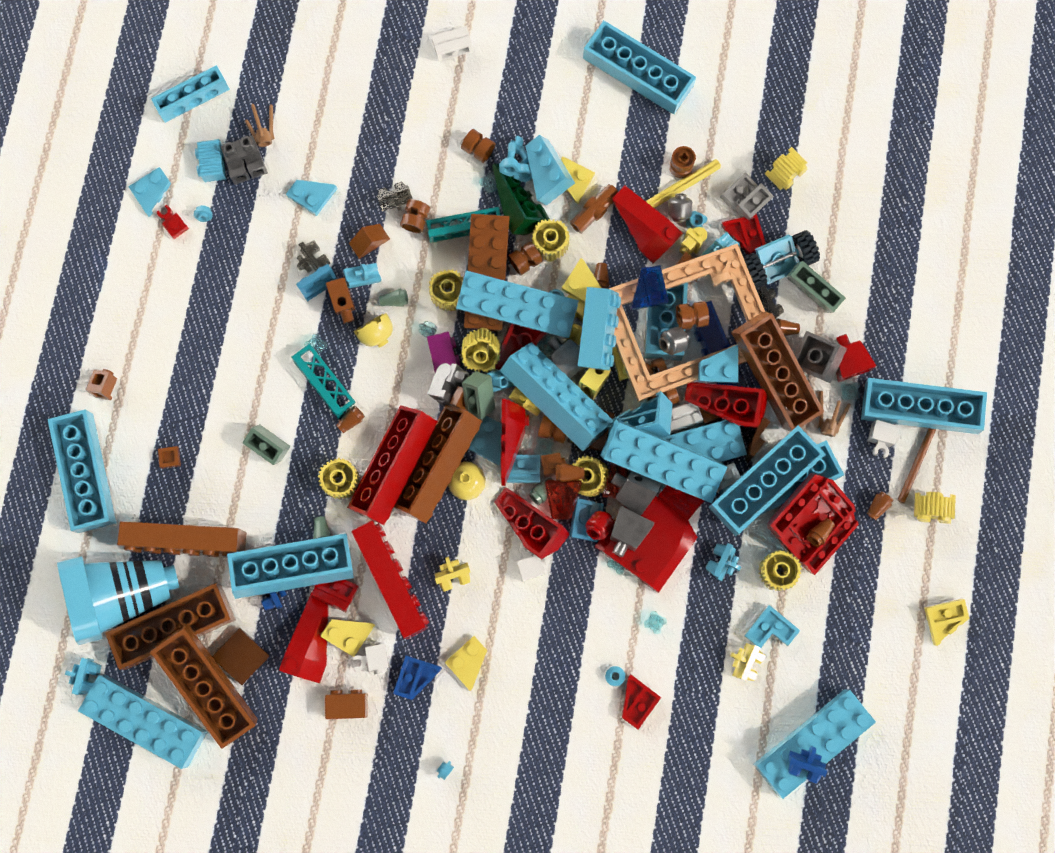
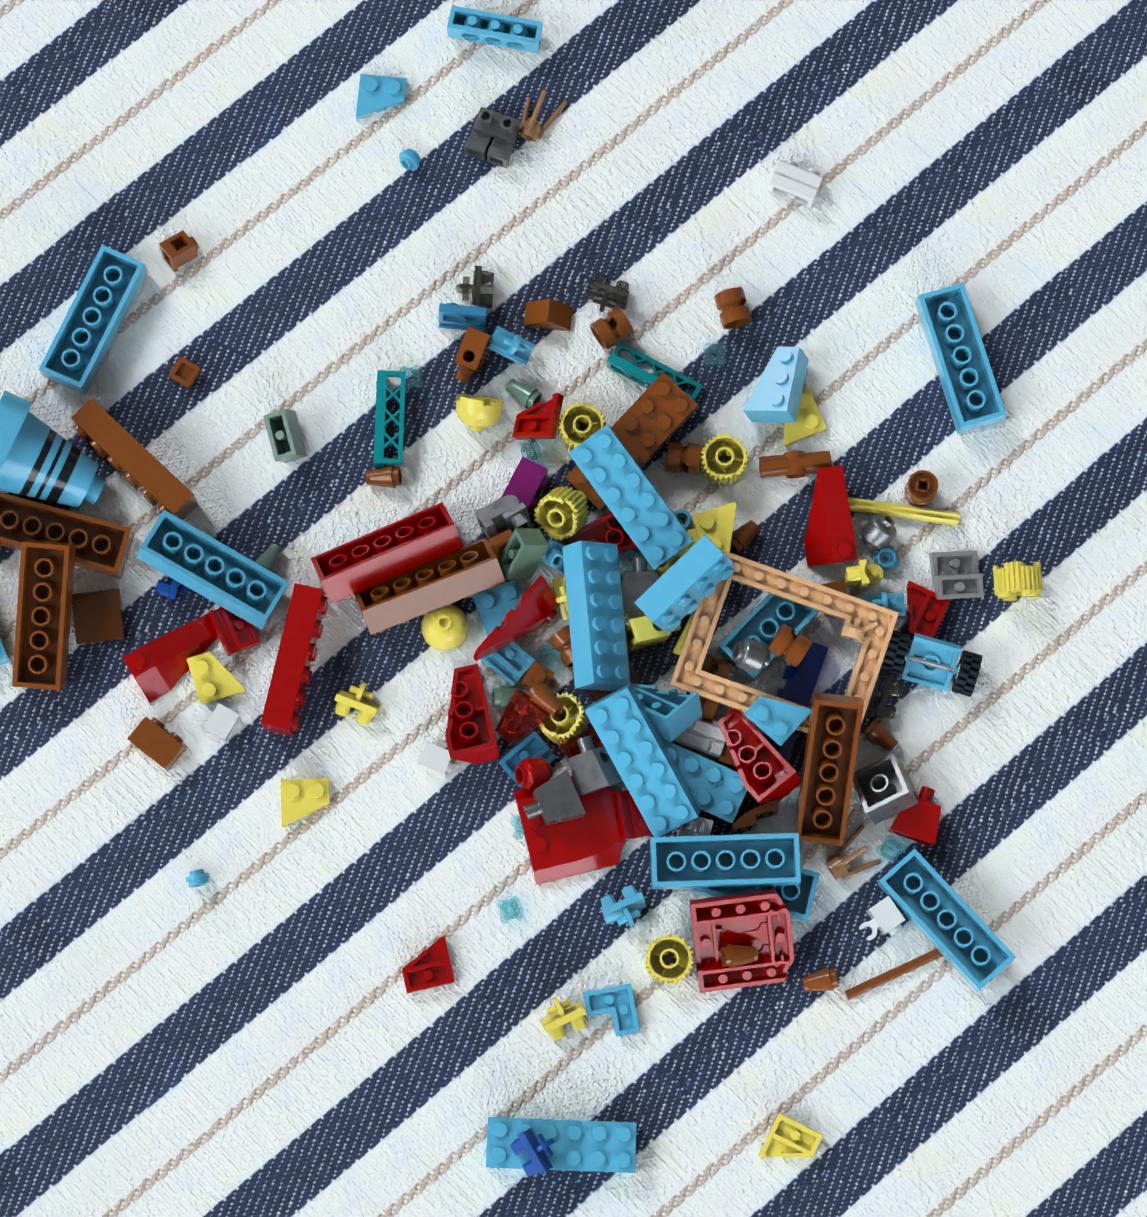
camera: 35 degrees right, 0 degrees up
(173, 223) = (374, 146): red plate -> none
(211, 160) = (460, 112): medium azure brick -> none
(311, 194) = (530, 224): medium azure wing -> none
(334, 469) = (327, 538): light yellow brick -> none
(414, 677) = (241, 770): blue wing -> none
(418, 306) = (539, 421): none -> red wing
(511, 167) = (746, 356): medium azure piece -> none
(518, 204) = (723, 395): dark green wedge -> none
(610, 671) = (428, 934): medium azure plate -> none
(650, 289) = (771, 586): clear blue wing -> none
(815, 287) = (942, 719): sand green brick -> none
(934, 506) = (870, 1023): light yellow brick -> none

